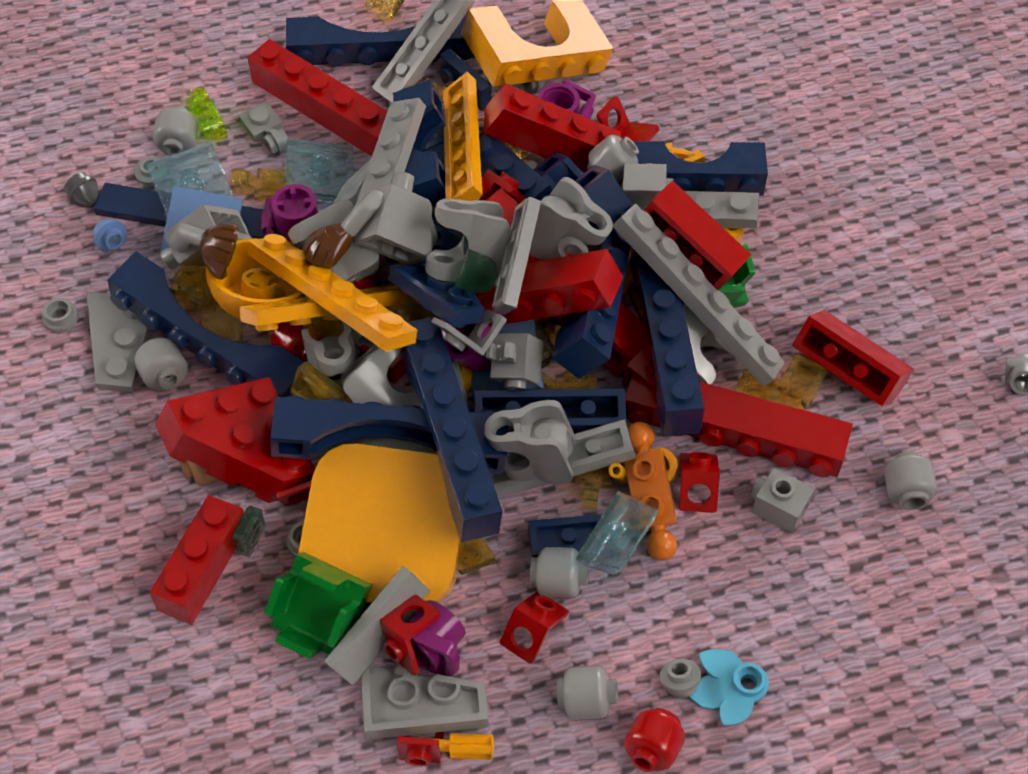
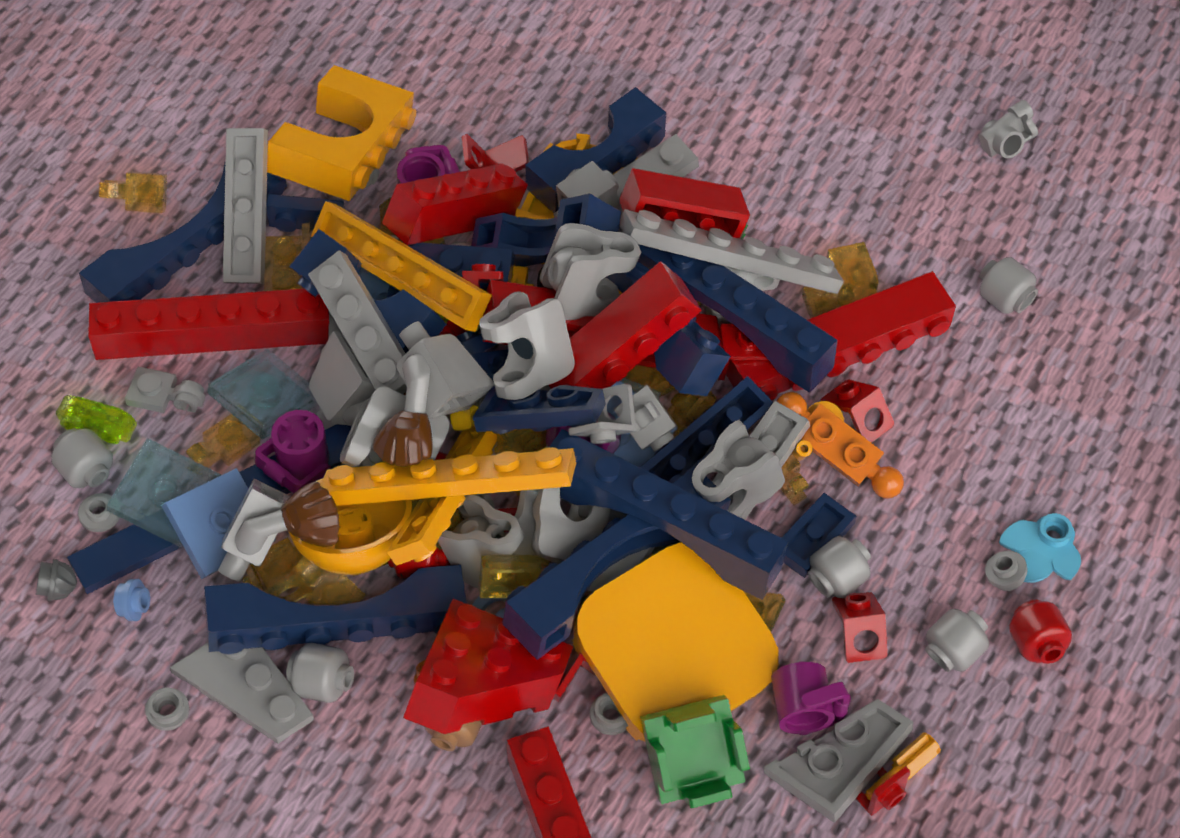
camera: 45 degrees left, 0 degrees up
(249, 531) = (564, 743): tile -> none
(366, 636) = (760, 723): light grey tile -> none
(399, 634) = (791, 717): red bracket -> none
(477, 273) = (557, 366): clear green tile -> none
(516, 256) = (587, 324): light grey tile -> none
(613, 155) = (532, 191): light grey head -> none
(617, 534) = (862, 496): clear light blue plate -> none
(781, 499) = (937, 374): light grey brick -> none
(852, 357) = (875, 219): red brick -> none

